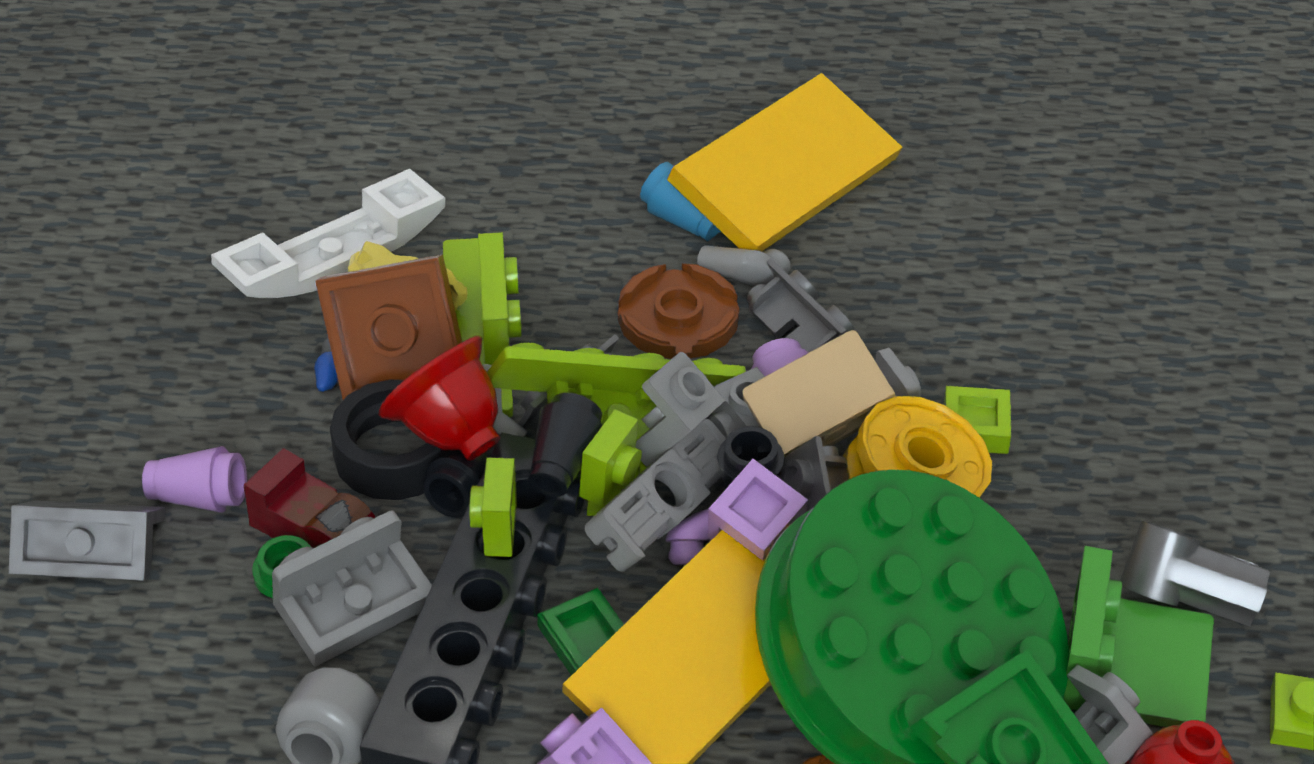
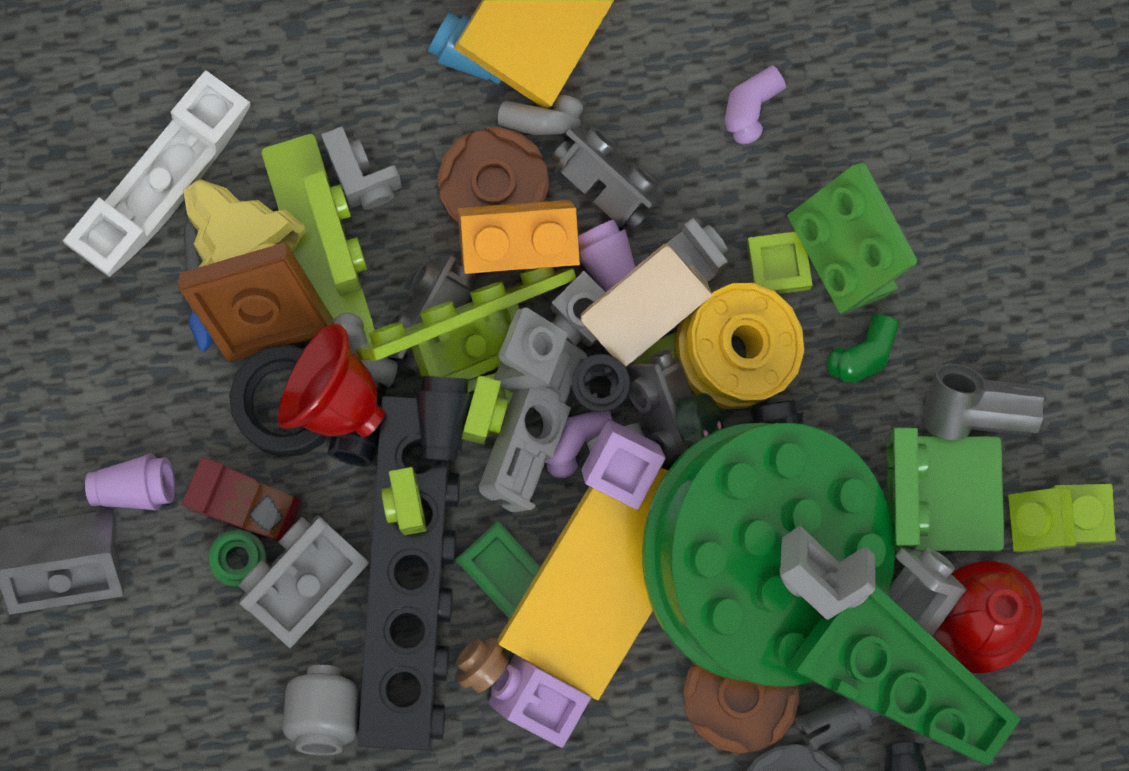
camera: 10 degrees left, 35 degrees up
(534, 714) = (480, 664): none -> medium nougat plate
(542, 279) = (349, 165): none -> light grey bracket
(692, 321) = (518, 236): none -> light orange brick
(958, 618) = (822, 580): none -> light grey bracket
(967, 288) = (746, 101): none -> lavender arm
(1061, 519) = (867, 357): none -> green arm
(1062, 382) = (853, 239): none -> bright green bracket
(1256, 700) = (1042, 520): none -> lime plate

